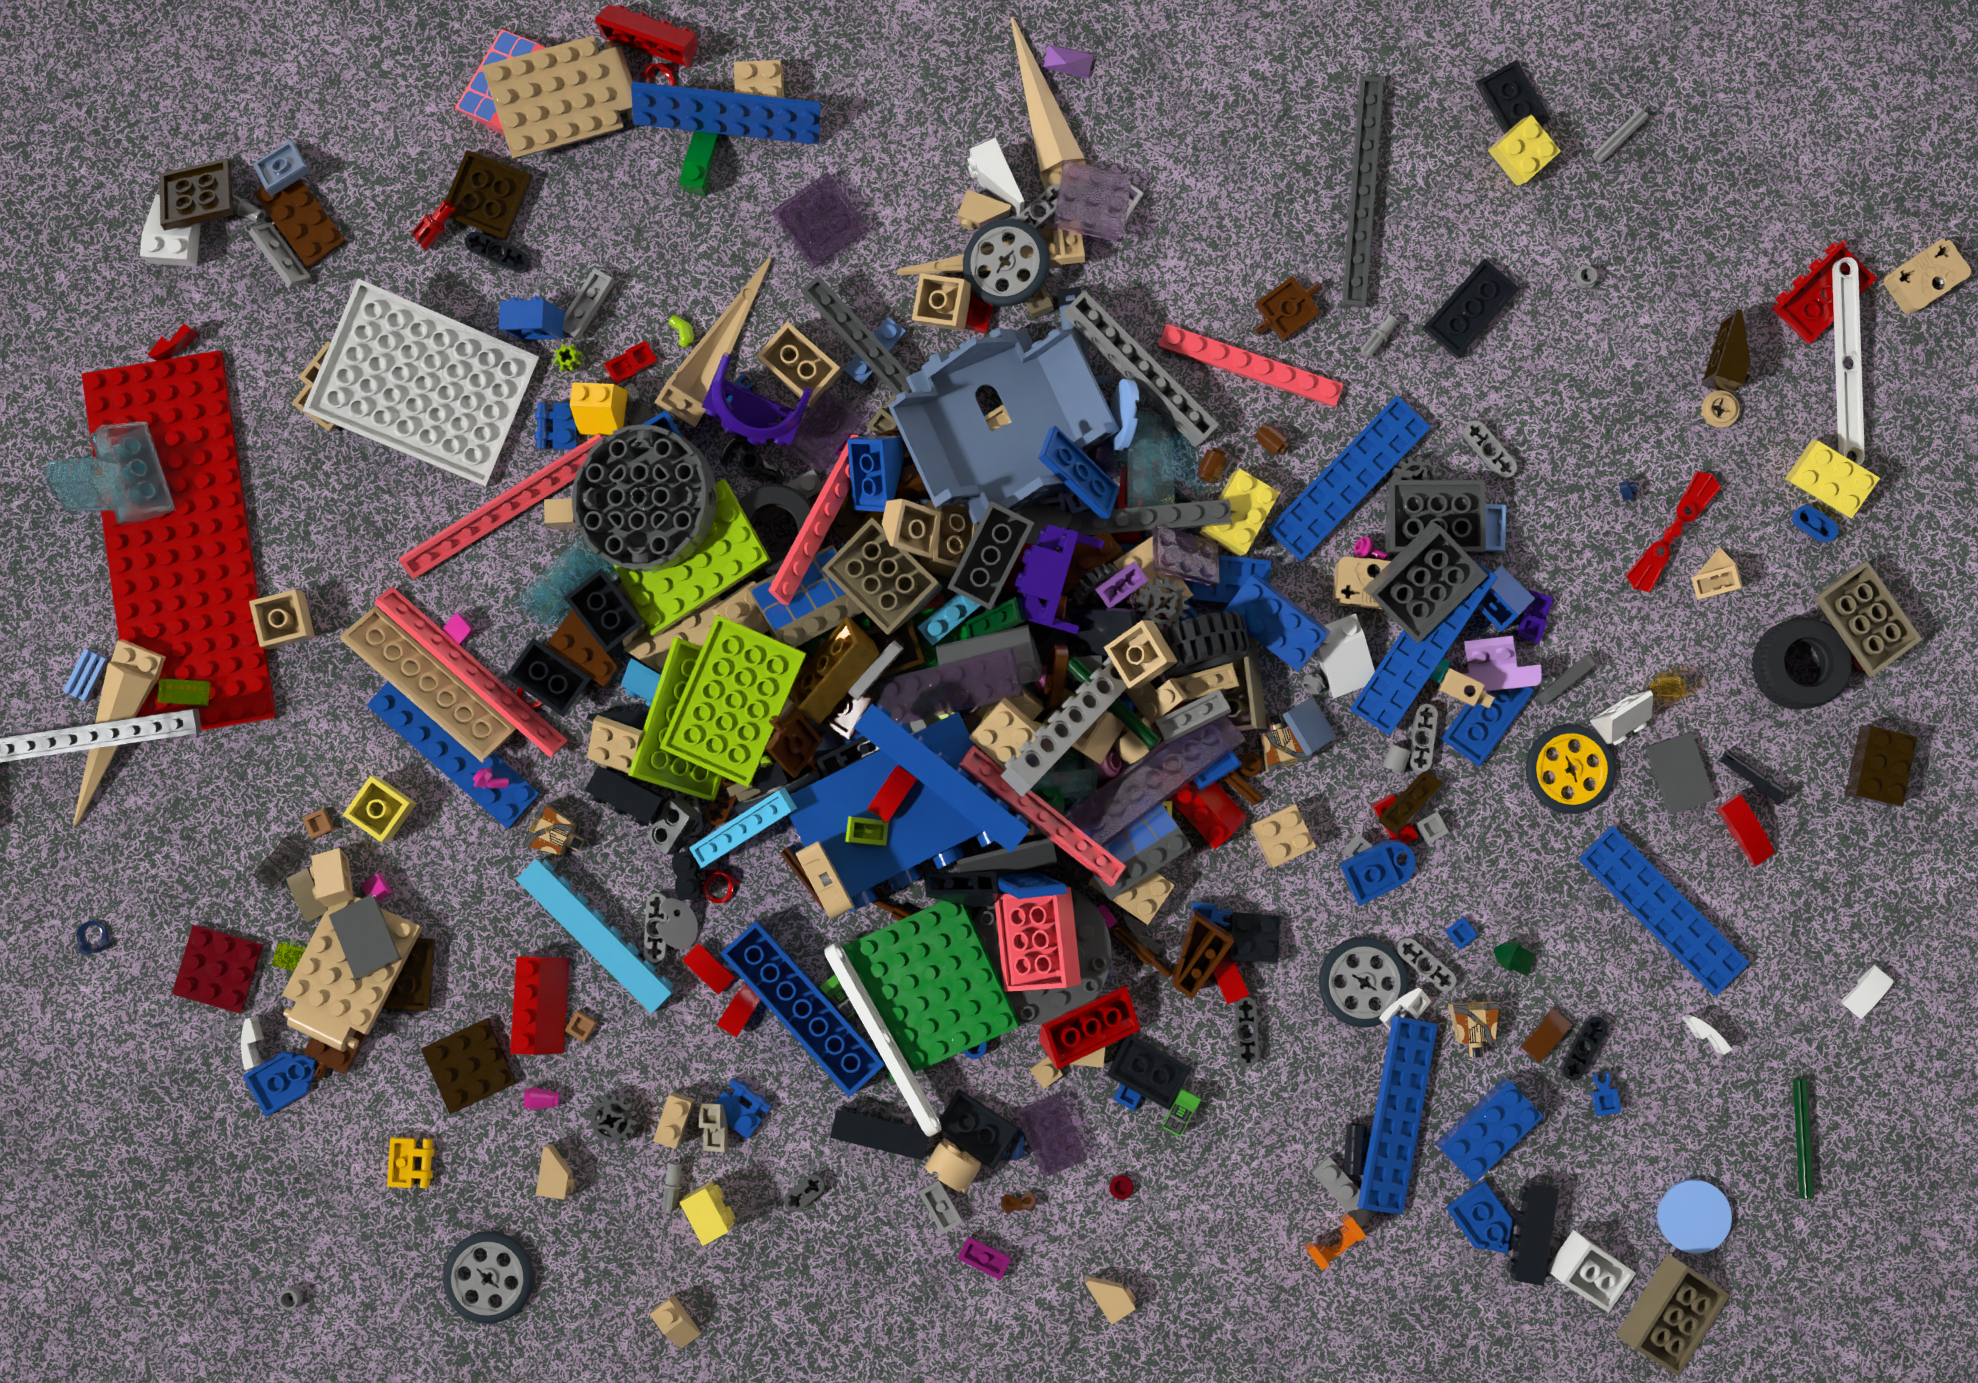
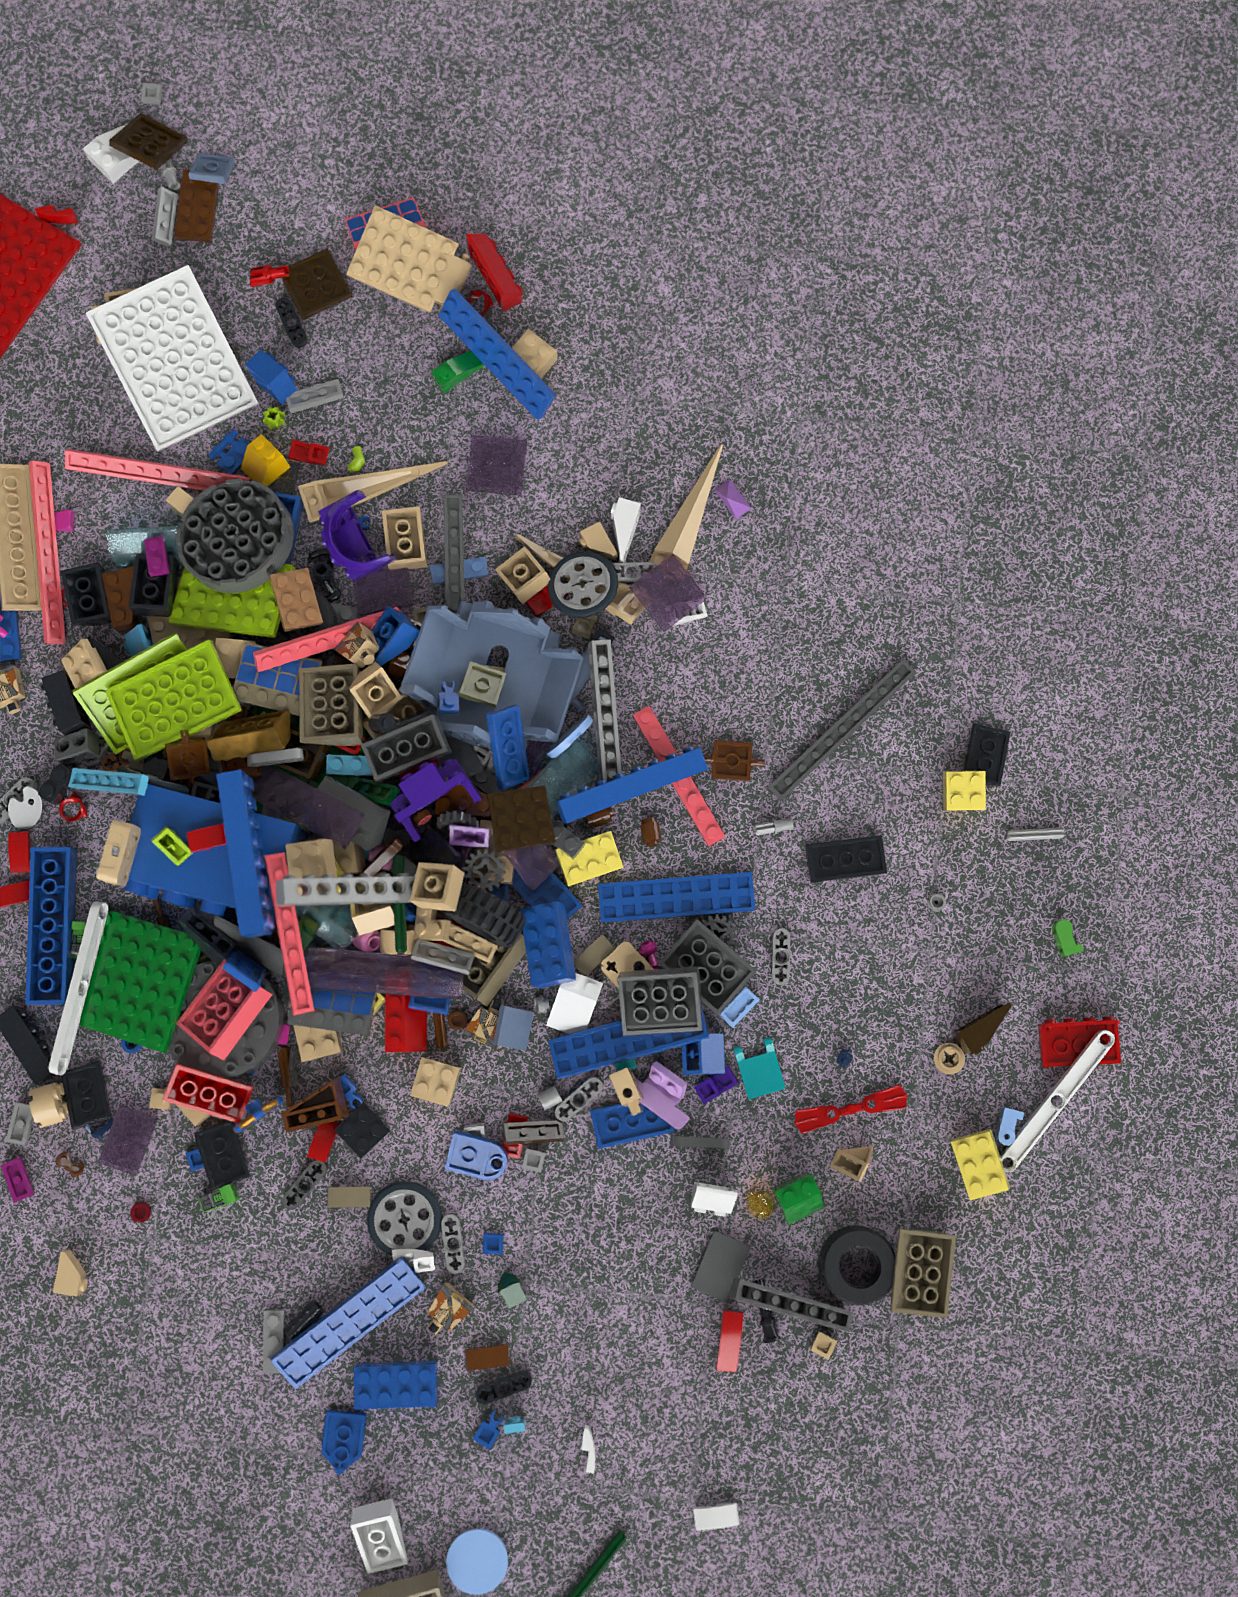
camera: 35 degrees right, 5 degrees down
(152, 145) = (151, 93): none -> light grey plate
(586, 582) = (156, 556): none -> magenta plate
(758, 508) = (295, 599): none -> medium nougat plate
(856, 500) = (359, 645): none -> tan torso
(955, 546) = (387, 723): none -> black door
(985, 478) = (448, 700): none -> blue plate
(1001, 436) = (482, 684): none -> olive plate
(1150, 1005) = (256, 1112): none -> piece
(1154, 527) = (521, 818): none -> dark brown plate
(1222, 409) = (631, 785): none -> blue brick
(1296, 1006) = (348, 1196): none -> dark tan slope
(1321, 596) = (594, 955): none -> dark tan slope
(1350, 1234) = (222, 1368): orange piece -> none
(1533, 1233) = (365, 1477): black brick -> none
(1550, 794) = (644, 1227): wedge -> none
(1563, 570) = (760, 1073): none -> teal flag
(1623, 1071) = (514, 1424): none -> medium azure plate
(1663, 910) = (631, 1345): blue plate -> none
(1695, 649) = (798, 1197): none -> green slope
(1730, 209) = (1064, 938): none -> bright green leg
(1775, 750) = (791, 1305): none -> flat silver brick
(1814, 522) = (946, 1183): blue plate -> none
(1823, 423) = (1006, 1125): none -> light blue leg
(1830, 761) = (823, 1345): none -> tan plate
(1881, 766) = (852, 1377): dark brown brick -> none
(1922, 272) = (1155, 1085): tan axle -> none

